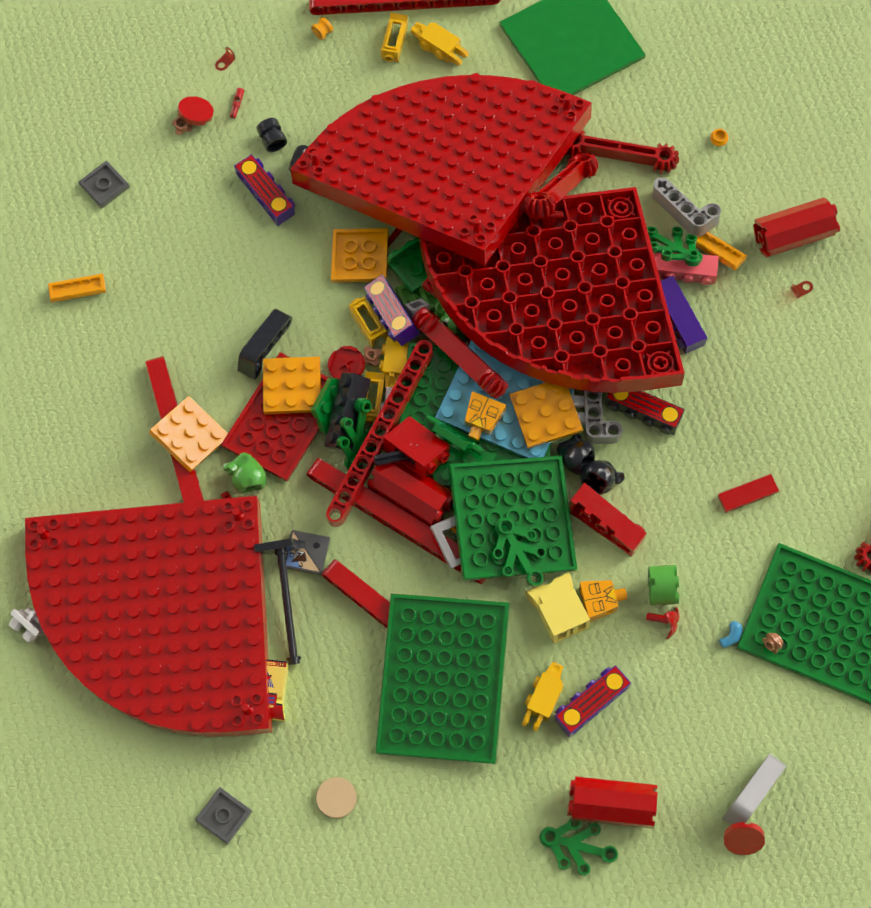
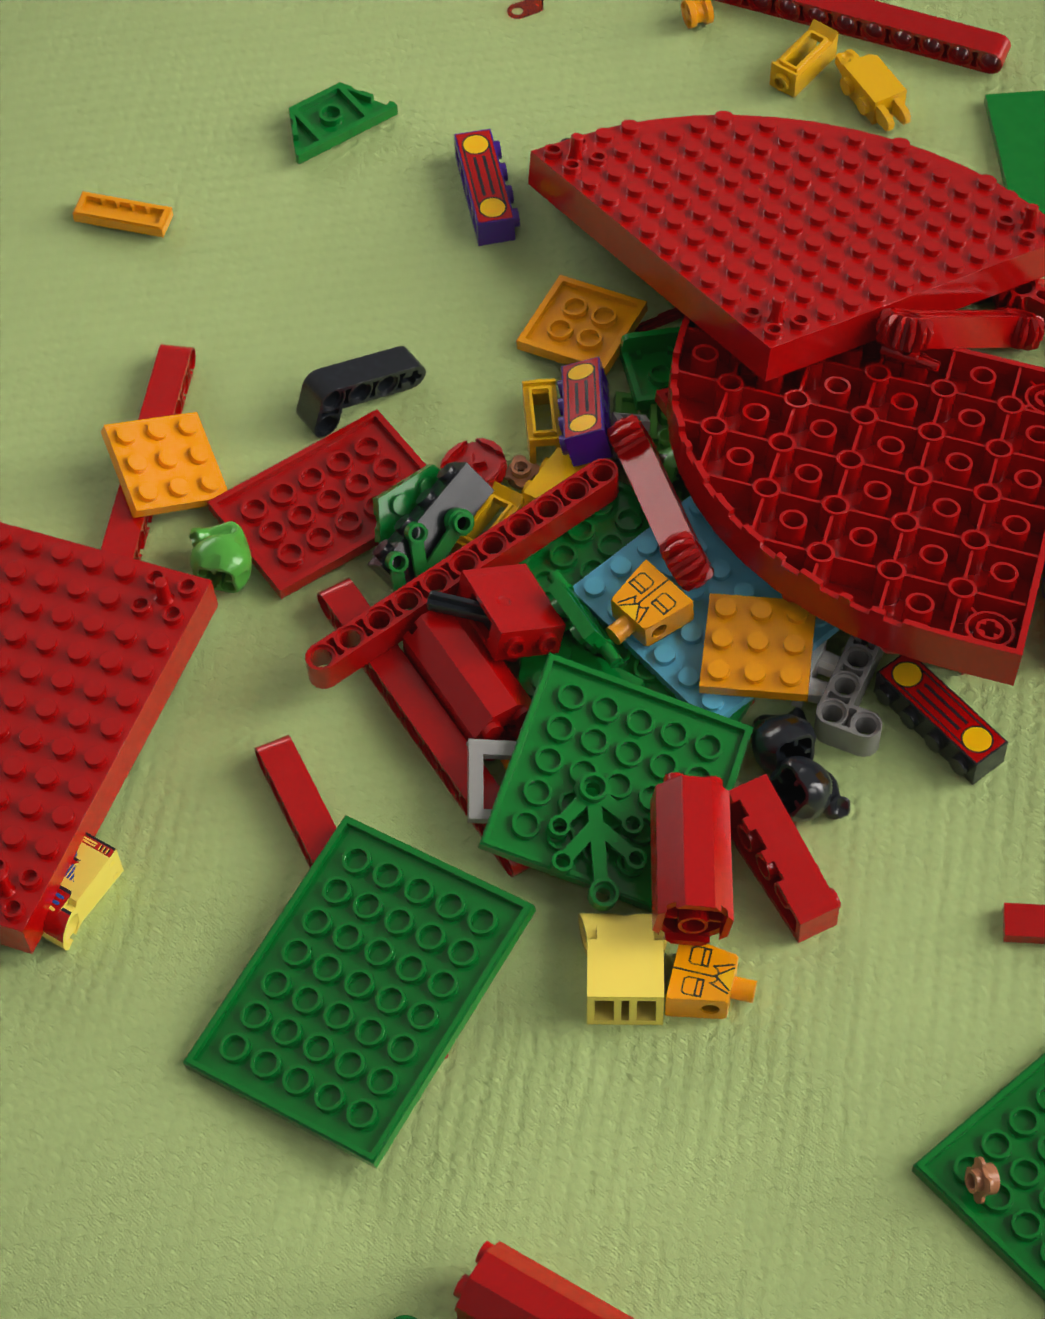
camera: 25 degrees right, 15 degrees down
(104, 184) = (248, 99): dark grey tile -> none
(159, 178) = (334, 118): none -> green wing
(179, 129) = (410, 62): nougat plate -> none
(195, 110) = (440, 49): red tile -> none
(236, 105) = (511, 63): red pin -> none
(271, 134) = (537, 118): black wheel -> none
(280, 549) = (203, 676): black tile -> none
(290, 384) = (364, 456): light orange plate -> none
(313, 557) = (251, 711): tile -> none
(336, 797) = (77, 1105): tan tile -> none
(545, 696) = (521, 1096): yellow hinge -> none
(571, 544) = (691, 859): none -> red brick
(592, 701) = (602, 1140): brick -> none
(663, 585) = (825, 1000): bright green brick -> none
(670, 618) = (811, 1061): red plant -> none
(734, 635) = (917, 1144): dark azure arm -> none

